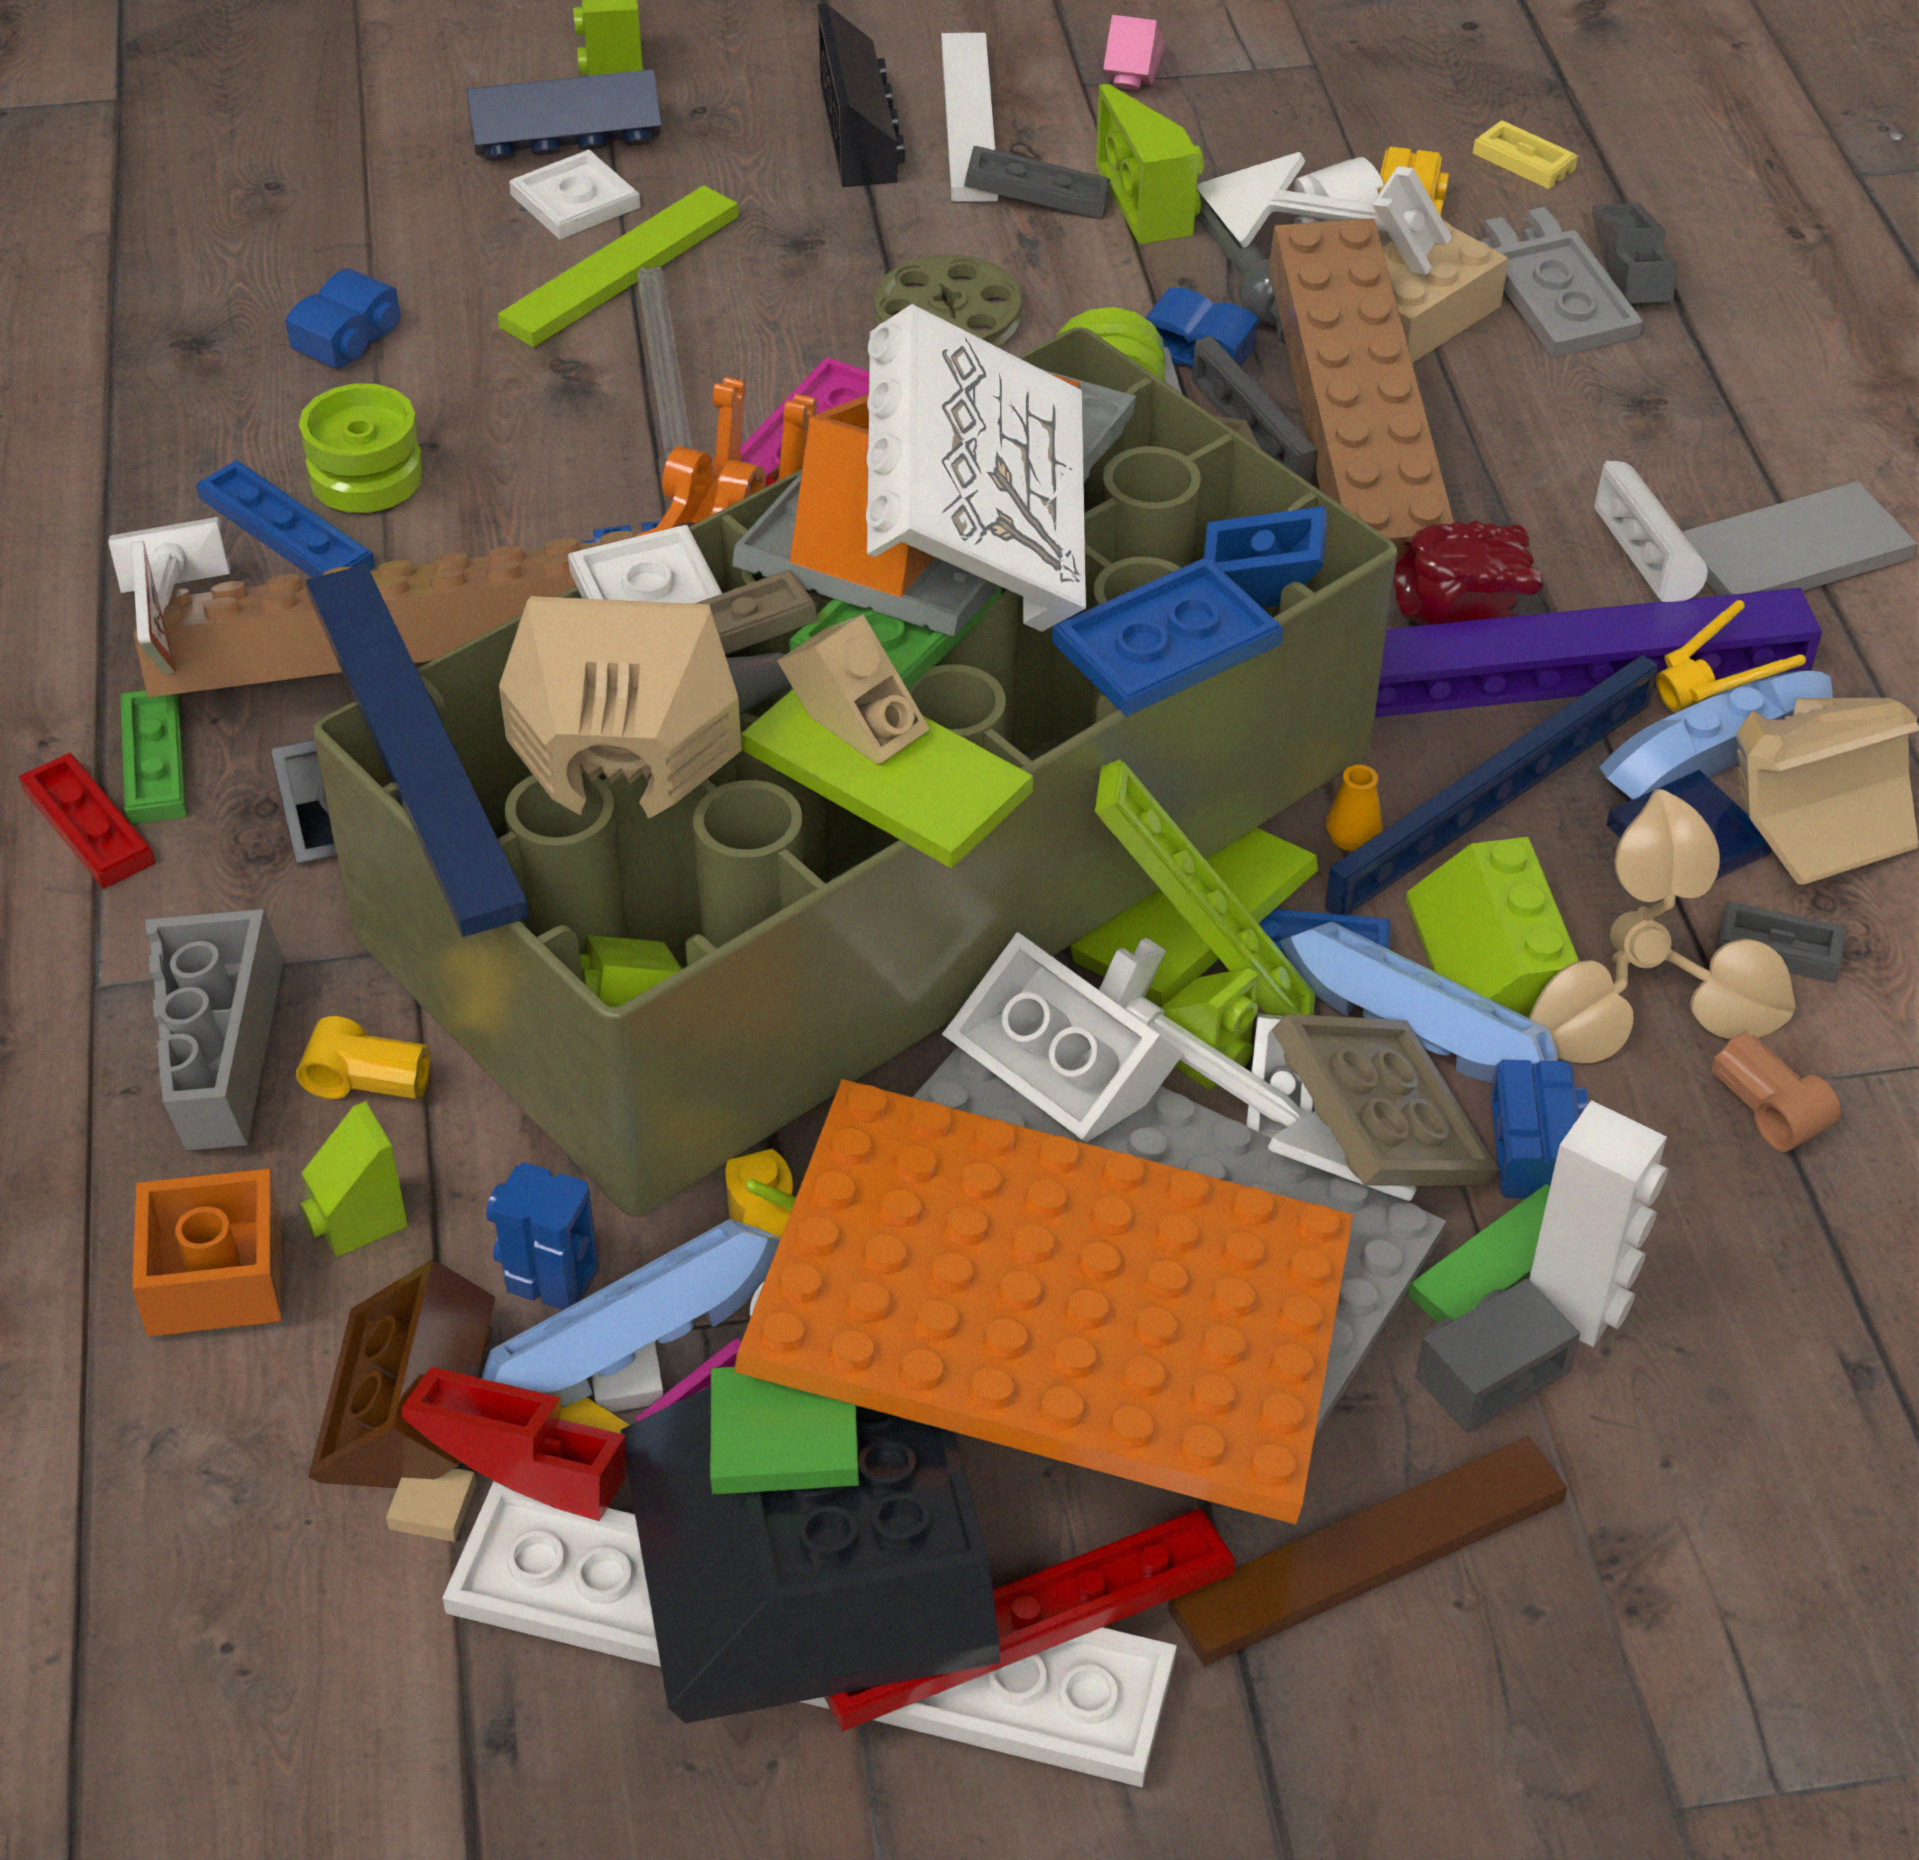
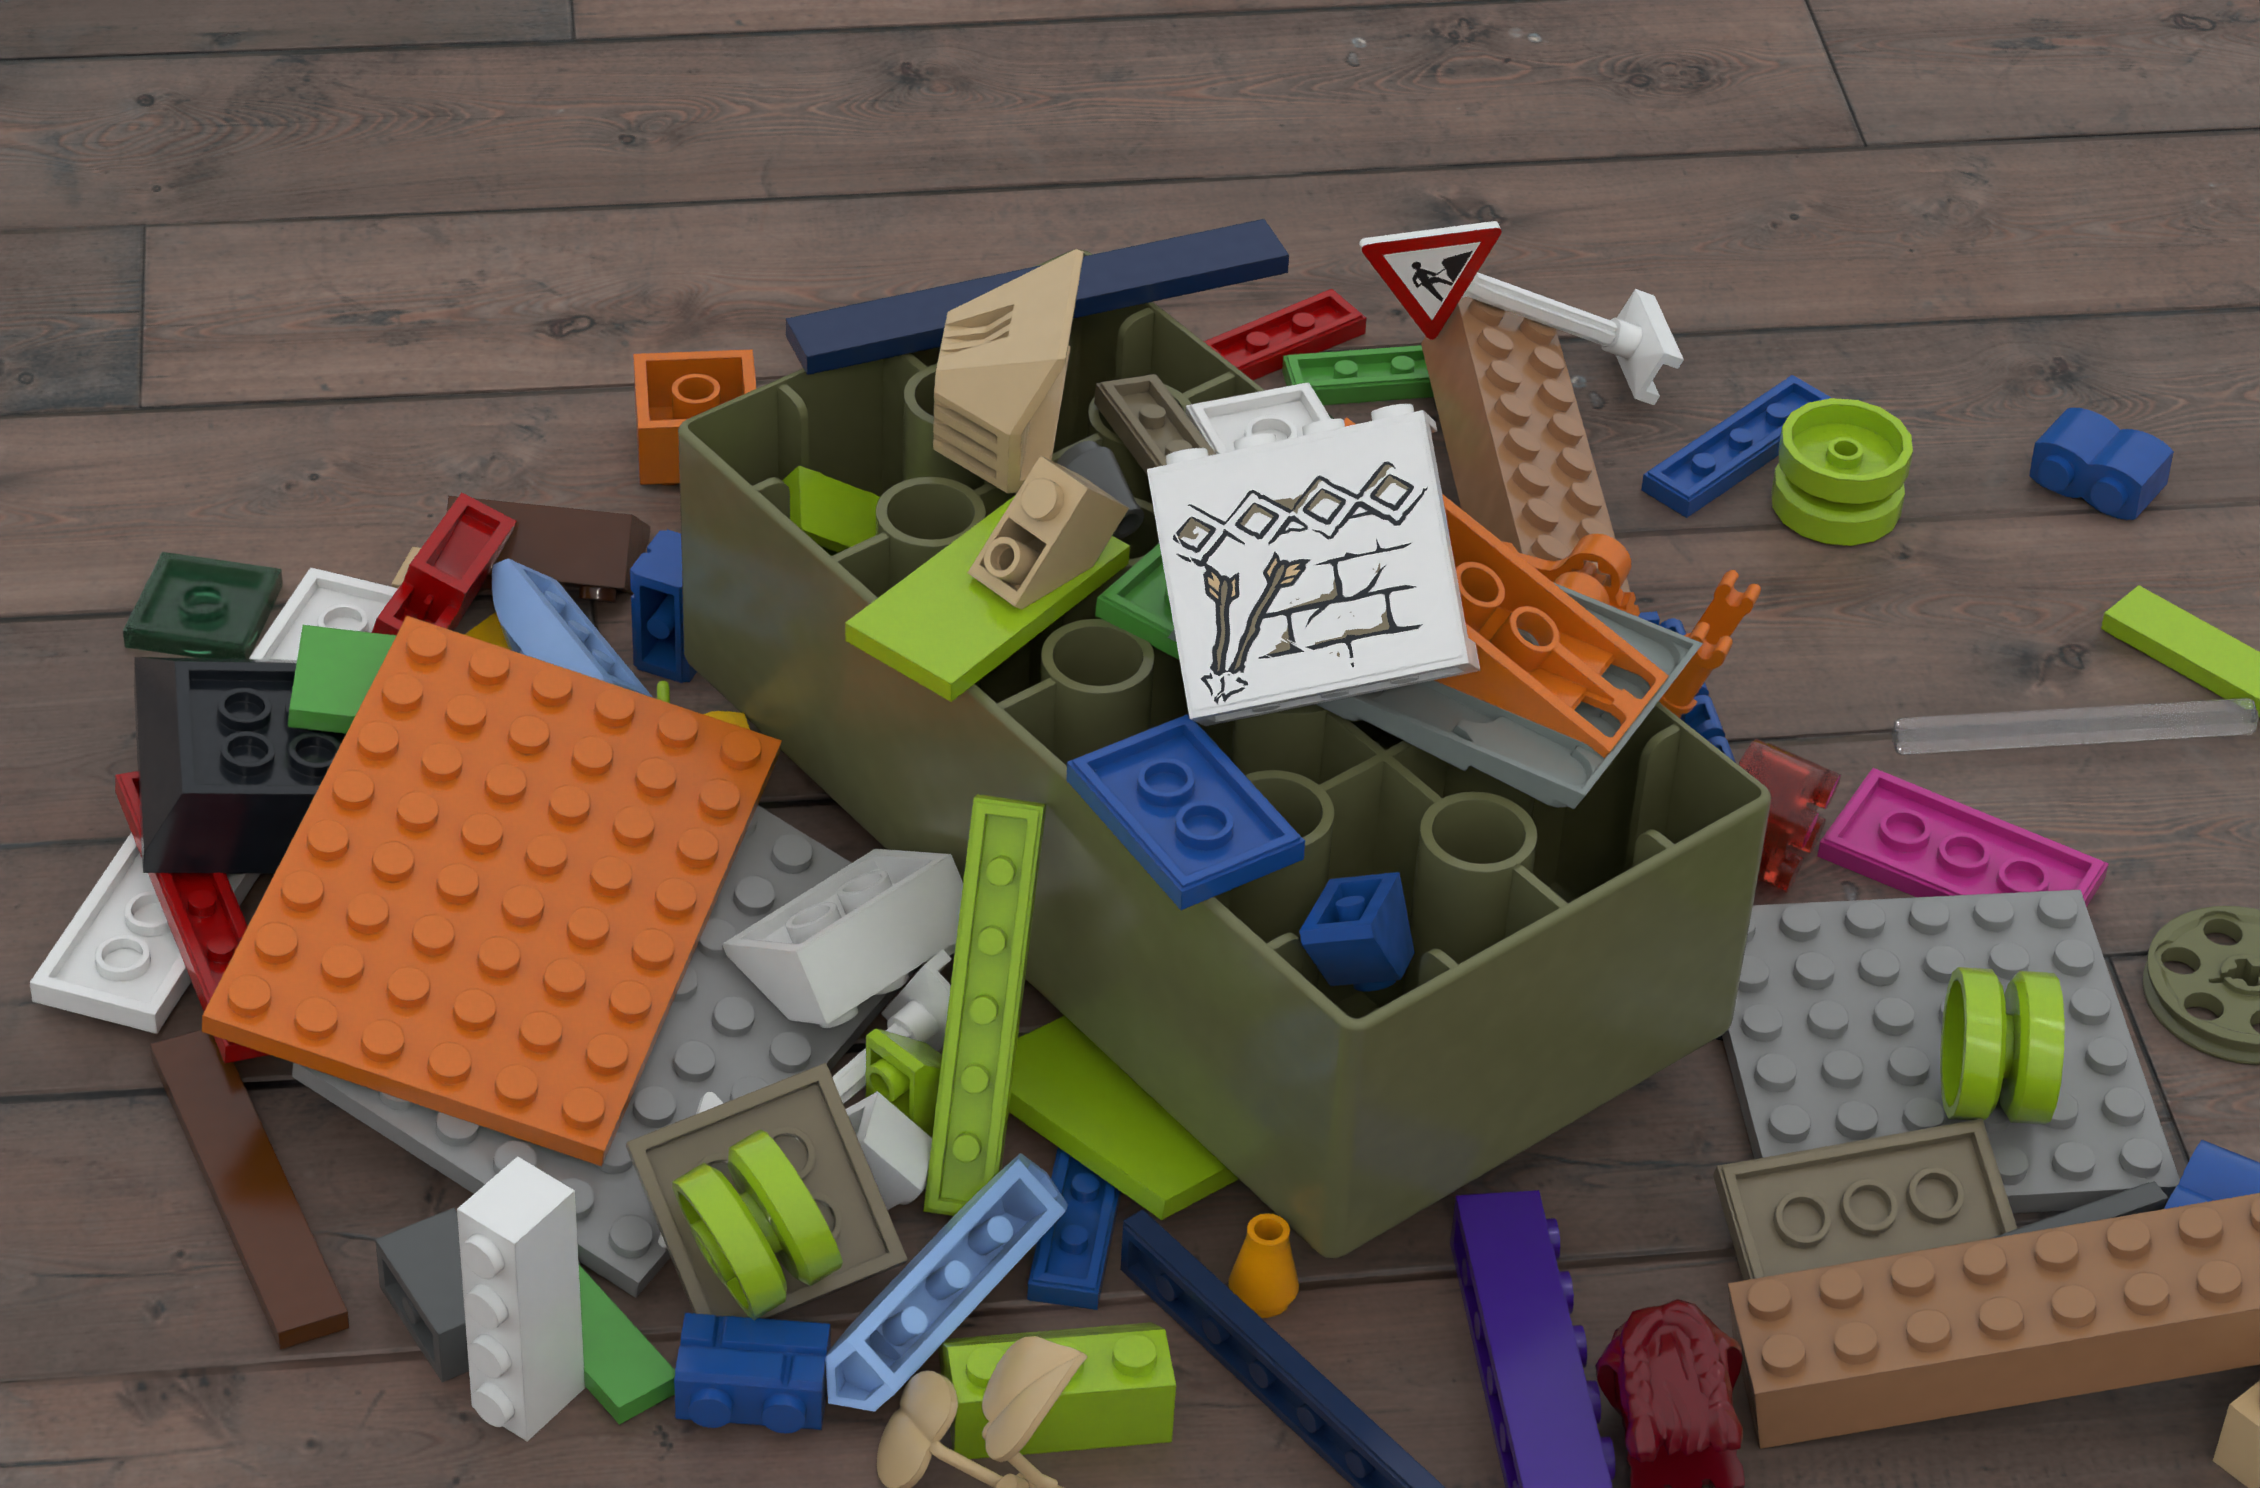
camera: 90 degrees right, 5 degrees down
(479, 1721) = (203, 607): none -> clear green tile
(1465, 1067) = (748, 1229): none -> lime wheel

